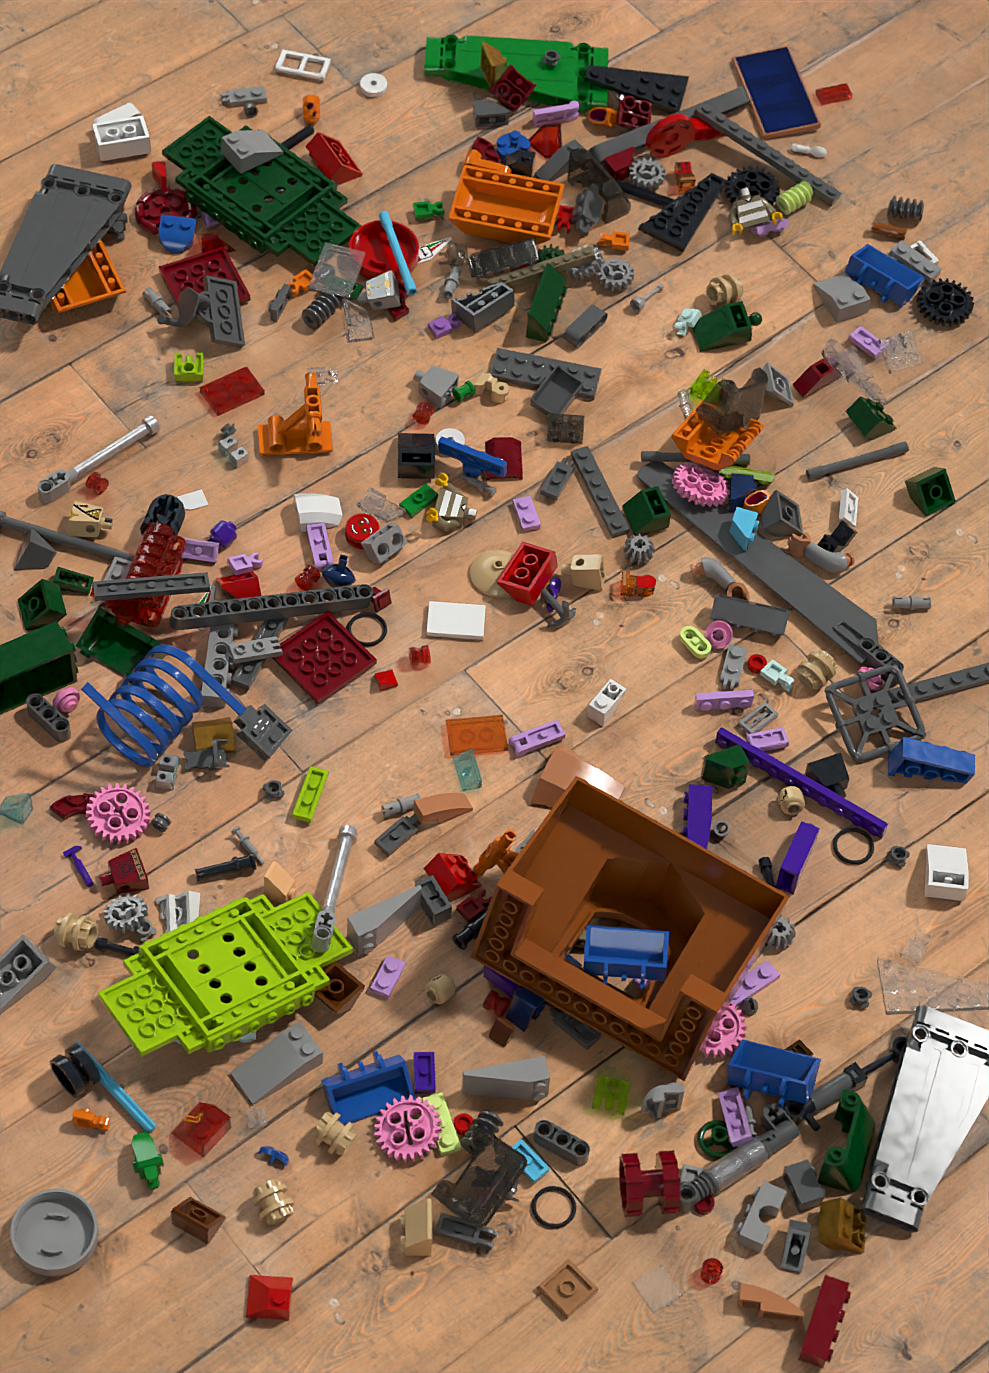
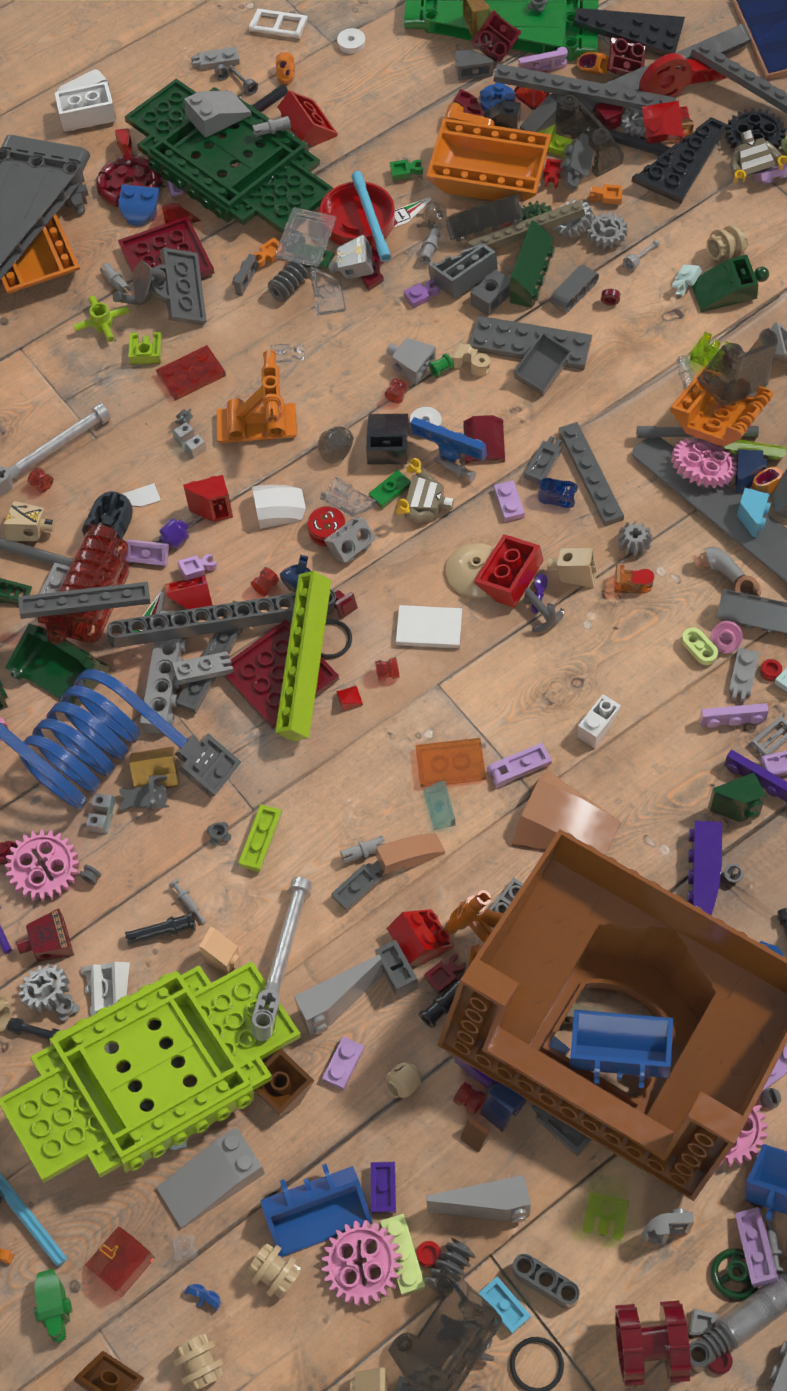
camera: 10 degrees right, 5 degrees up
(146, 338) = (101, 318): none -> lime bar
(255, 503) = (209, 498): none -> red slope
(275, 122) = (246, 82): none -> dark grey hinge
(303, 165) = (271, 126): none -> light grey pin
(319, 545) = (279, 543): lavender plate -> none
(346, 641) = (303, 656): none -> lime brick
(368, 459) = (335, 444): none -> clear smoke hair
(509, 327) = (490, 292): none -> dark grey brick
(565, 428) = (552, 403): clear smoke brick -> none
(568, 507) = (557, 492): none -> clear blue piece
(570, 191) = (557, 142): none -> lime slope
(595, 143) = (579, 88): none -> dark grey plate
(618, 334) = (610, 296): none -> dark red tile
(647, 511) = (643, 495): dark green slope -> none
(667, 176) = (662, 122): none -> red slope

